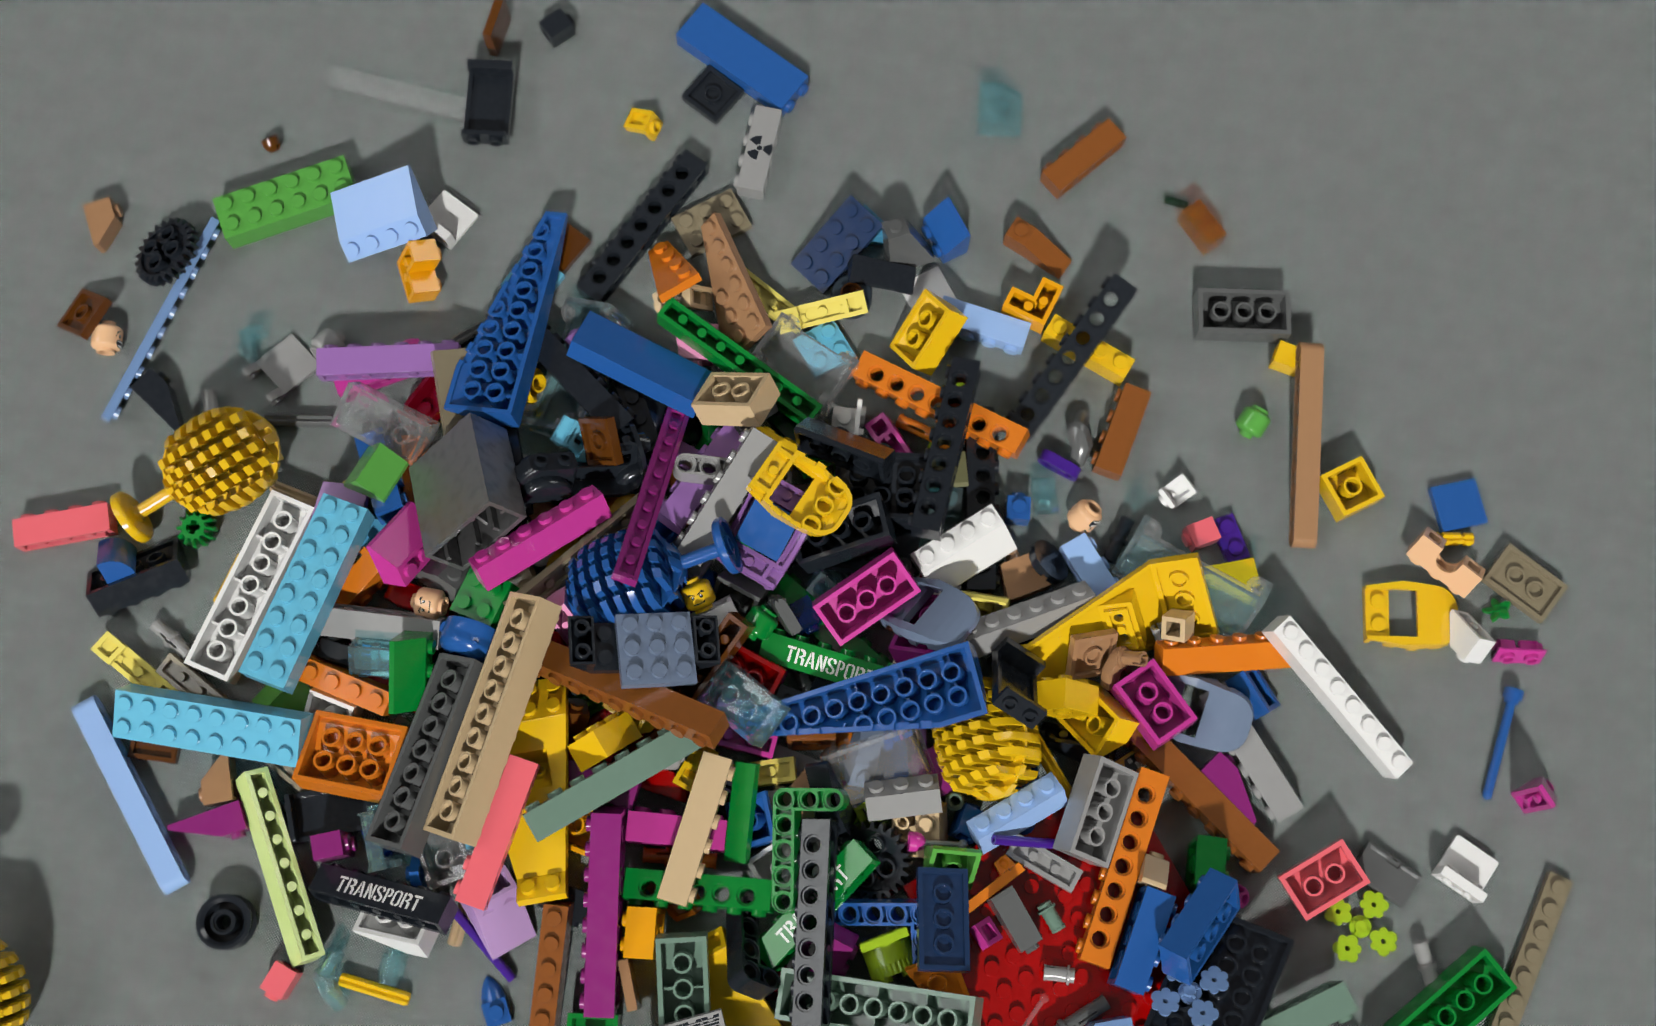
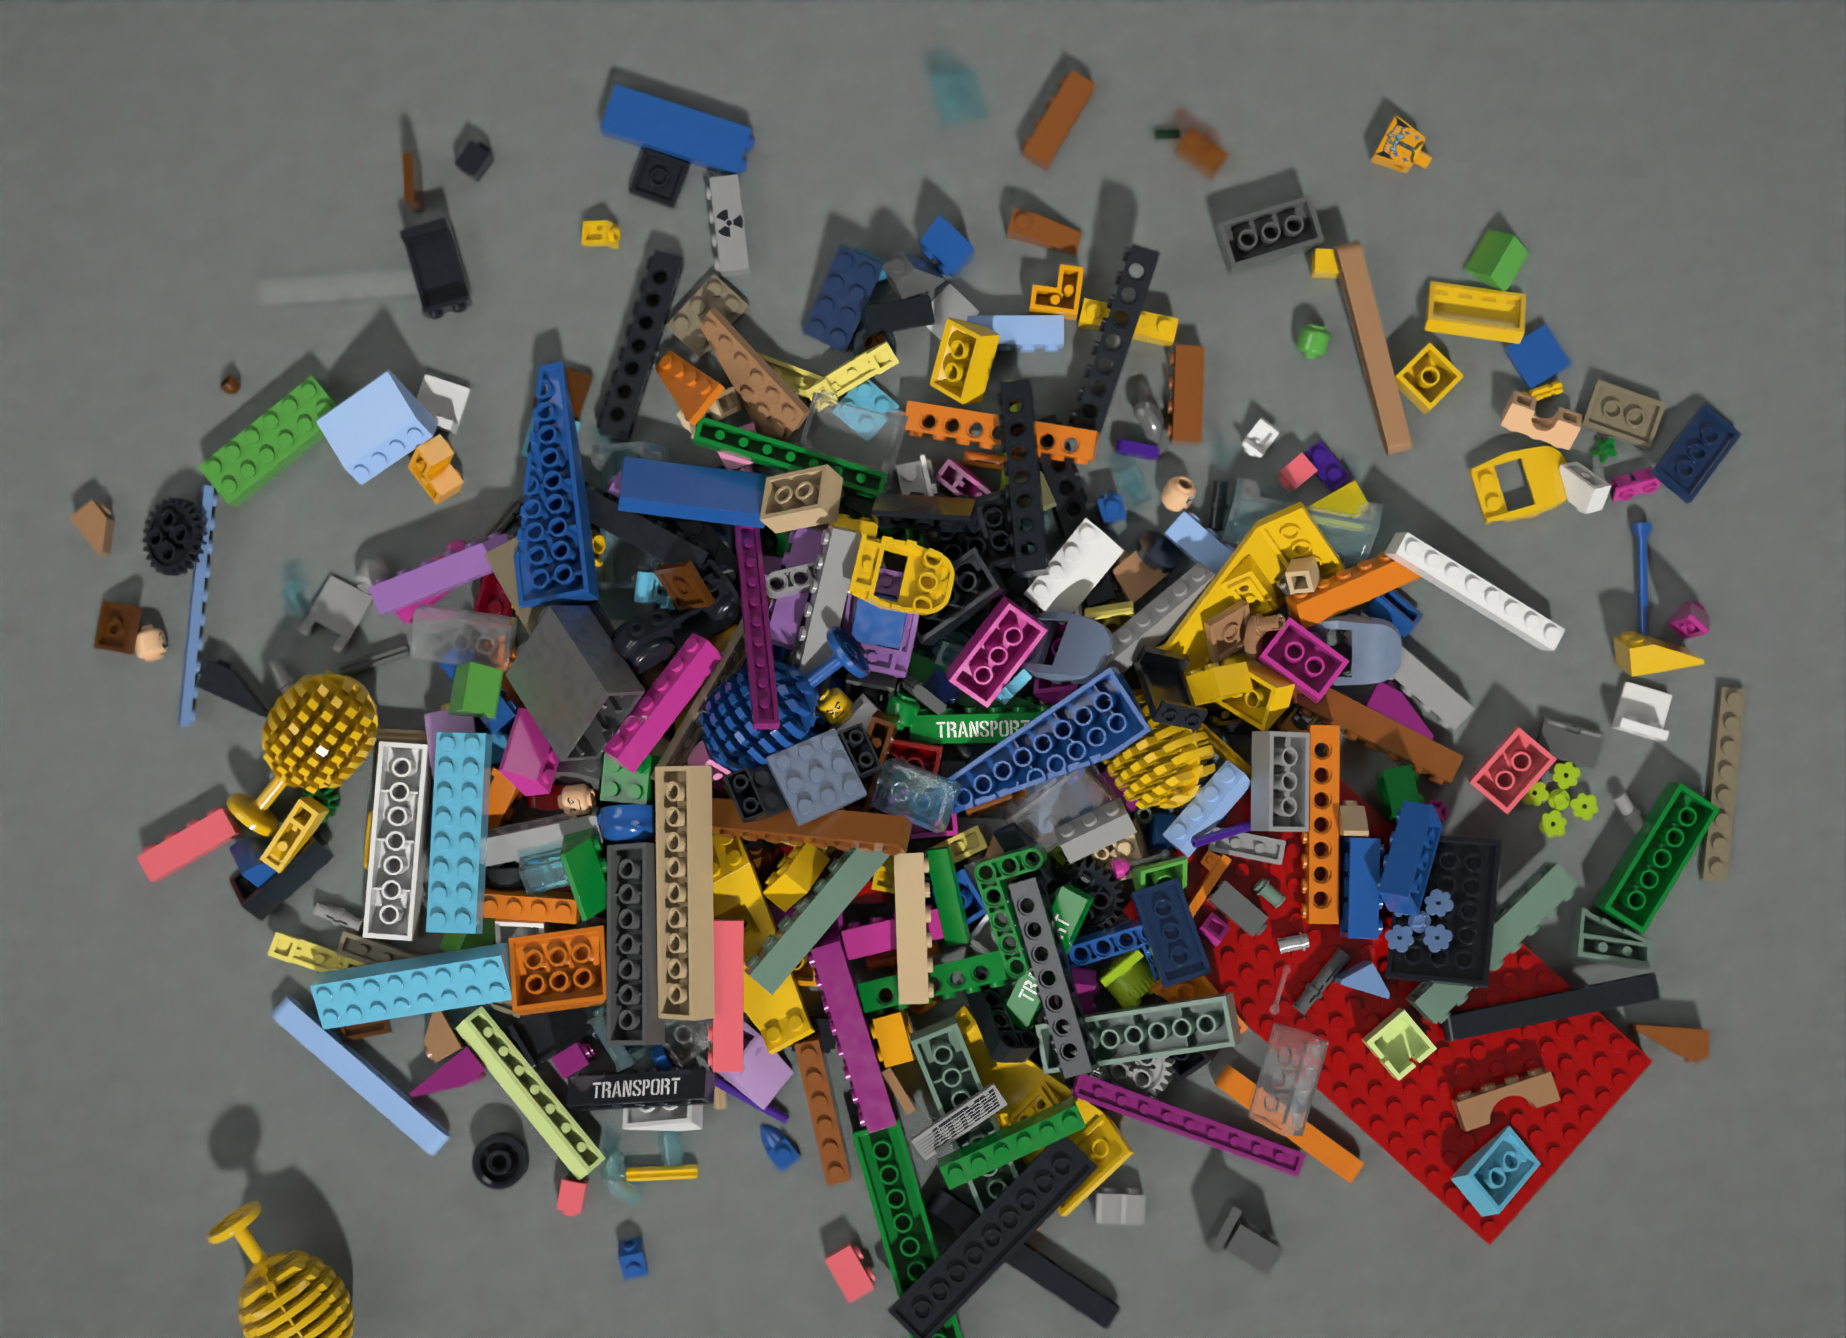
camera: 15 degrees left, 10 degrees up
(160, 544) = (294, 833): none -> yellow slope
(872, 636) = (1013, 687): none -> medium azure piece
(1385, 280) = (1401, 147): none -> light orange torso
(1411, 446) = (1475, 312): none -> yellow slope
(1445, 407) = (1497, 259): none -> bright green slope
(1481, 812) = (1647, 655): none -> yellow slope
(1584, 641) = (1695, 453): none -> dark blue plate

